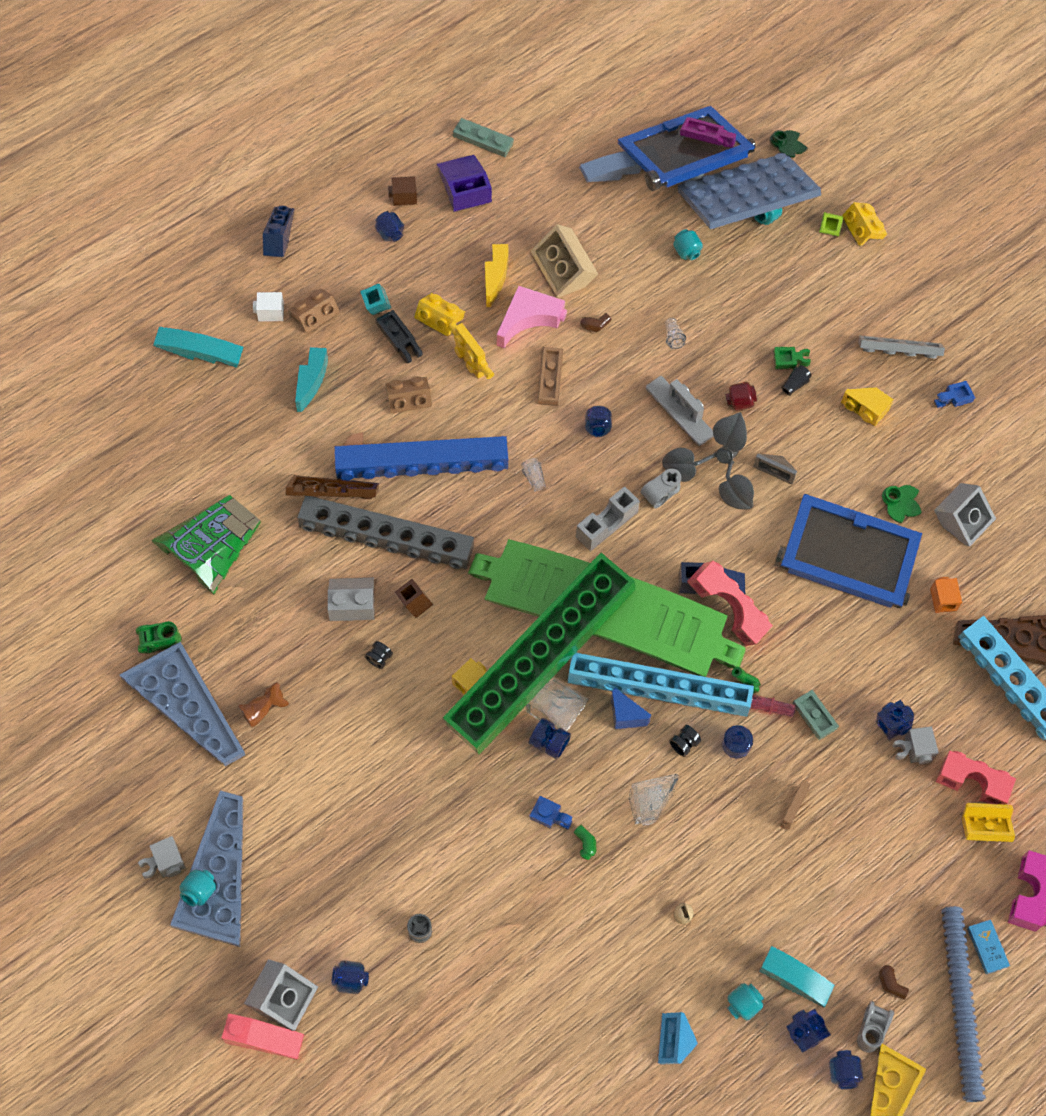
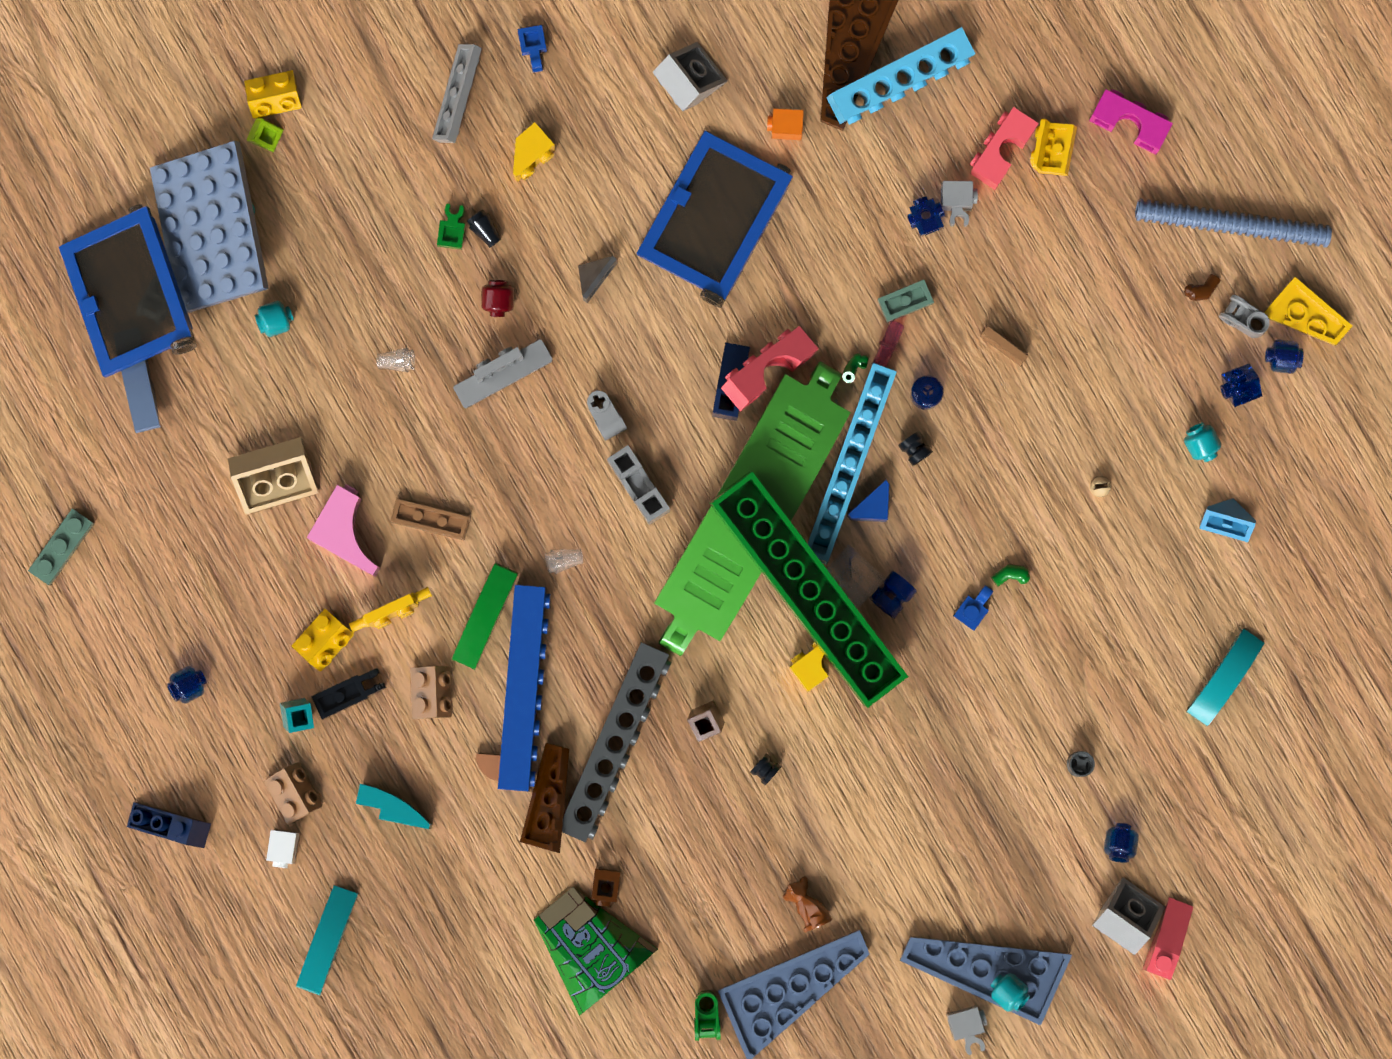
camera: 80 degrees left, 20 degrees up
(262, 542) = (605, 876): none -> reddish brown brick
(351, 599) = (688, 791): light grey slope -> none
(403, 191) = (133, 660): reddish brown brick -> none
(465, 182) = (130, 581): dark purple slope -> none
(477, 421) = (485, 616): none -> green slope
(496, 272) = (276, 562): yellow slope -> none
(524, 1058) = (1226, 677): none -> teal slope
(594, 324) = (367, 454): reddish brown arm -> none
(598, 421) = (505, 472): clear blue head -> none
(651, 797) = (979, 497): clear slope -> none
(707, 132) = (117, 262): magenta hinge -> none
(732, 434) = (570, 329): dark grey plant -> none
(787, 142) = (137, 158): dark green plate -> none
(796, 976) = (1184, 385): teal slope -> none
(903, 504) = (664, 141): green plate -> none
(988, 947) = (1179, 182): dark azure tile -> none

